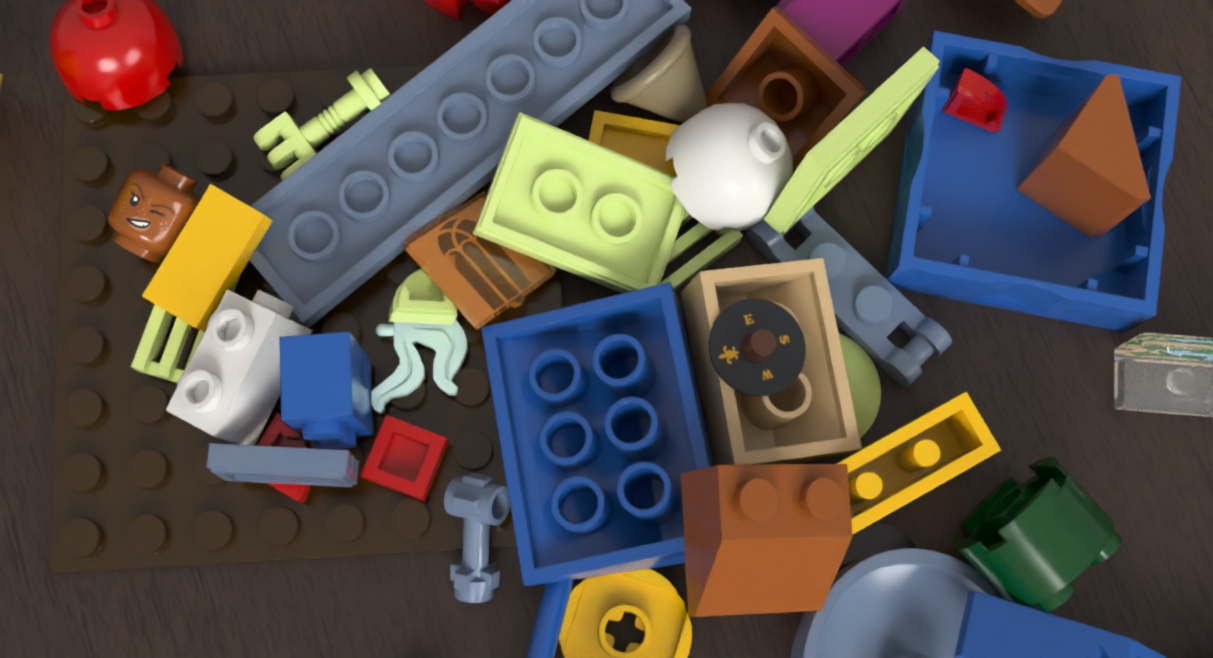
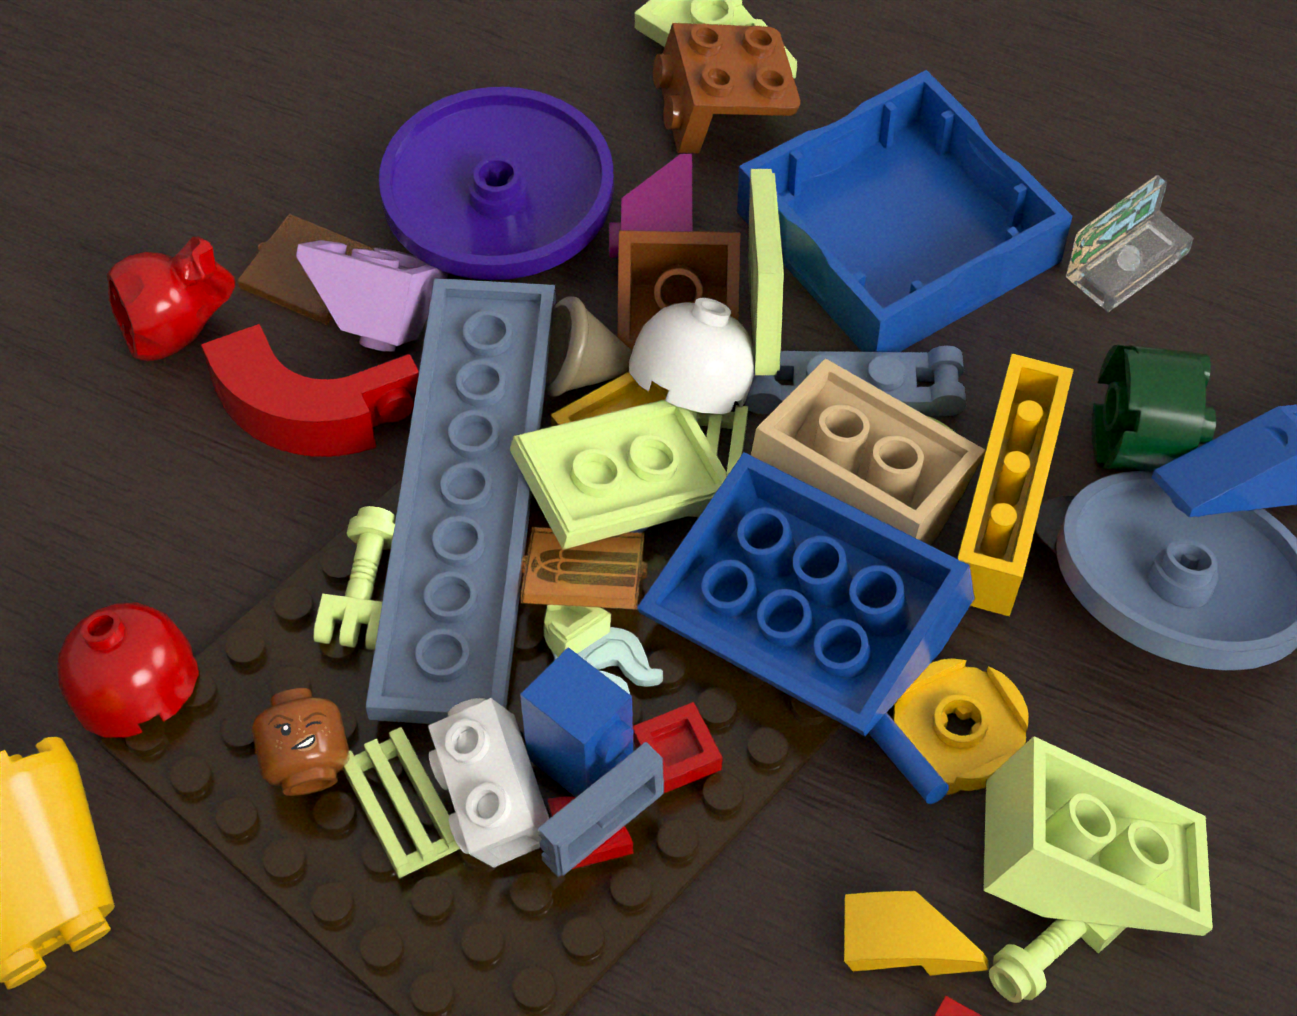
camera: 40 degrees left, 20 degrees down
(207, 257) = (380, 732): yellow tile -> none
(481, 505) = (766, 723): sand blue bar -> none
(757, 347) = (848, 442): piece -> none
(763, 536) = (990, 528): dark orange slope -> none
(976, 101) = (813, 193): red tile -> none
(1091, 164) = (931, 164): dark orange slope -> none

